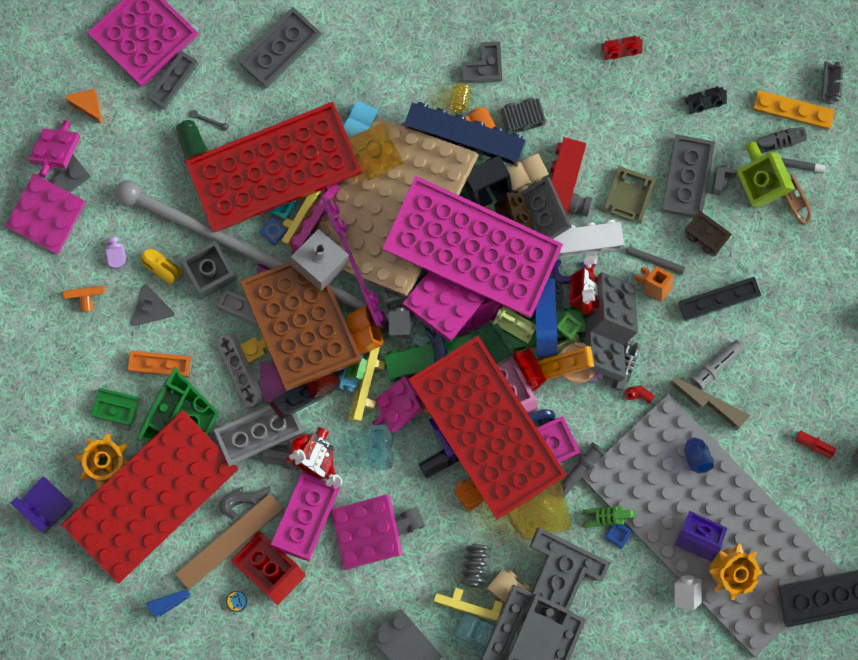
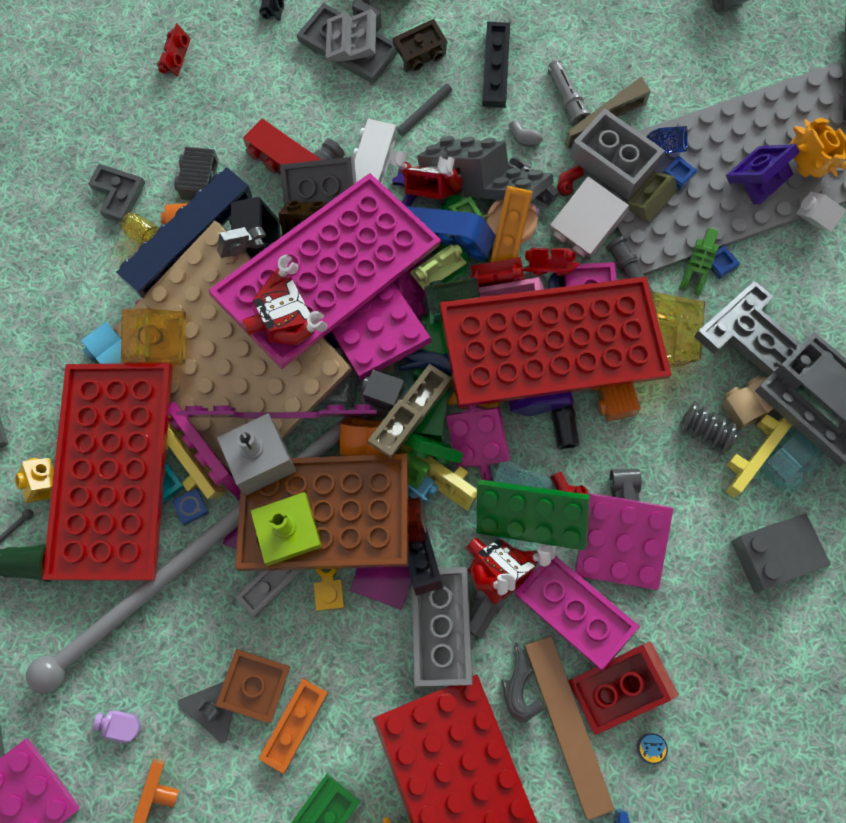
camera: 65 degrees left, 5 degrees down
(161, 266) = (164, 669): yellow arm -> none
(173, 327) = (253, 686): none -> dark orange plate
(174, 396) = (351, 730): green wedge -> none
(208, 269) = (199, 607): dark grey brick -> none
(242, 368) = (349, 625): light grey beam -> none
(248, 121) = (35, 479): none -> yellow brick
(278, 301) = (286, 529): none -> lime tile
(357, 461) = (533, 514): none -> green plate
(376, 373) = (425, 446): none -> green plate
(389, 482) = (561, 484): none -> red arm
(392, 348) = (410, 411): none -> dark tan slope
(418, 231) = (281, 309): none -> torso
(462, 177) = (236, 241): none -> dark grey plate
(527, 173) = (268, 187): tan brick -> none
(556, 404) = (560, 262): none -> red hinge
(606, 420) = (589, 218): none -> white brick
(627, 198) = (344, 110): olive container -> none
(647, 460) = (652, 196): none -> olive slope
(657, 283) = (454, 112): orange brick -> none
(664, 347) = (525, 136): none -> light grey arm
(665, 419) = (616, 154): none -> light grey brick
(677, 474) = (681, 170): none -> blue tile
(689, 177) = (351, 36): none -> light grey slope
(815, 444) = (691, 37): red axle -> none

